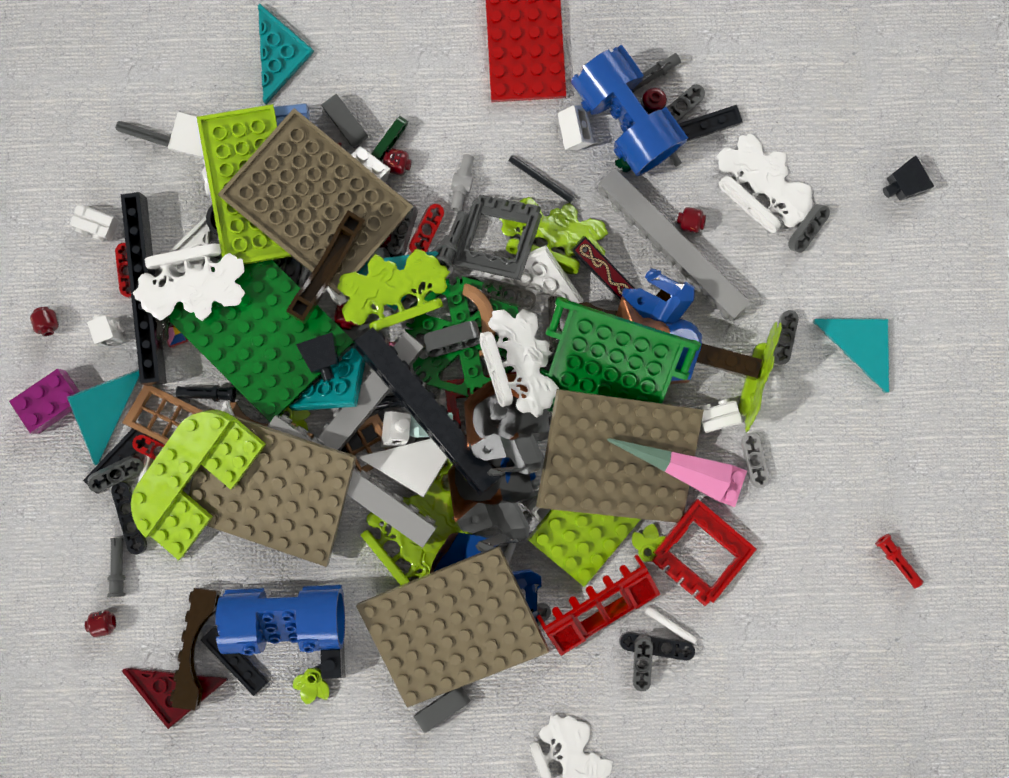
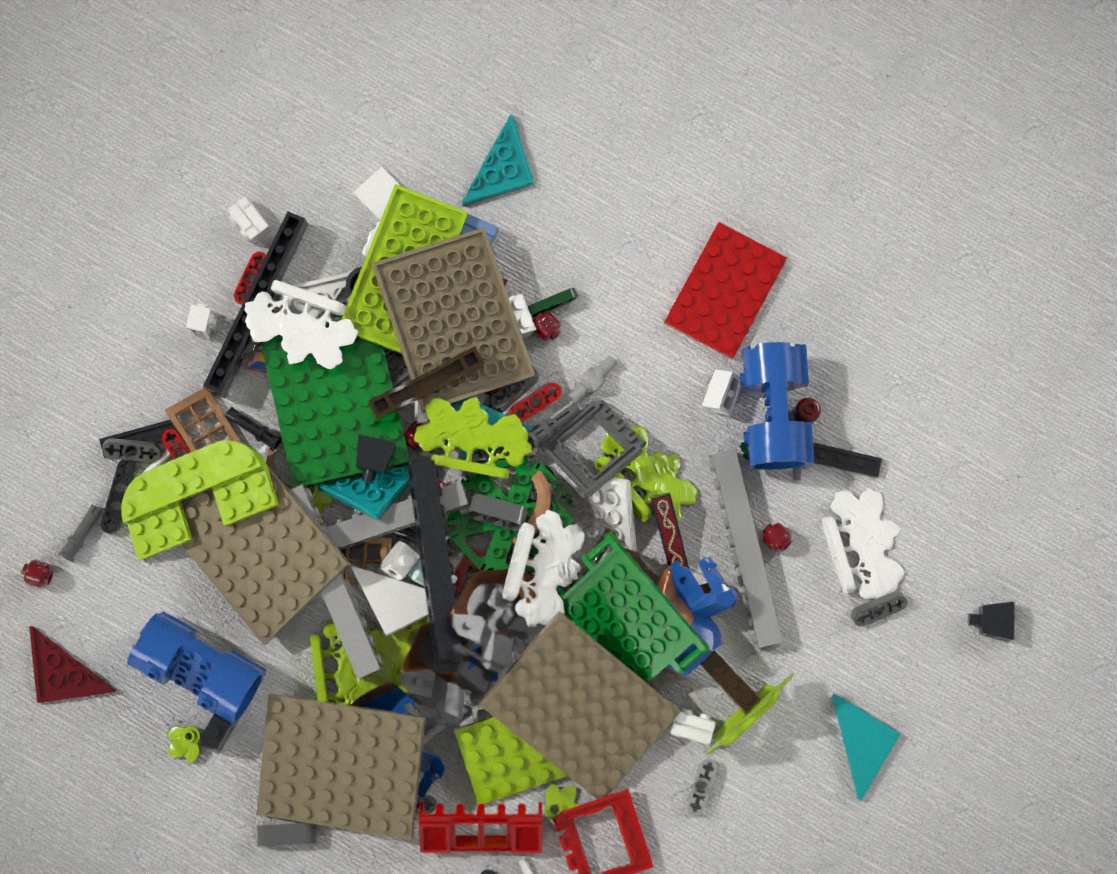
camera: 30 degrees right, 5 degrees down
(44, 321) = (152, 279): dark red head -> none
(45, 401) = (112, 351): magenta brick -> none
(100, 409) = (152, 386): teal tile -> none
(142, 133) = (339, 167): dark grey axle -> none
(188, 688) = (77, 677): dark brown arch -> none
(237, 664) = (131, 681): black tile -> none
(344, 120) = (522, 262): dark grey beam -> none
(540, 178) = (665, 418): black bar -> none
(672, 61) = (848, 385): dark grey pin -> none
(688, 93) = (845, 422): dark grey beam -> none
(710, 477) = (653, 780): bright pink plate -> none
(786, 352) = (811, 687): dark grey beam -> none

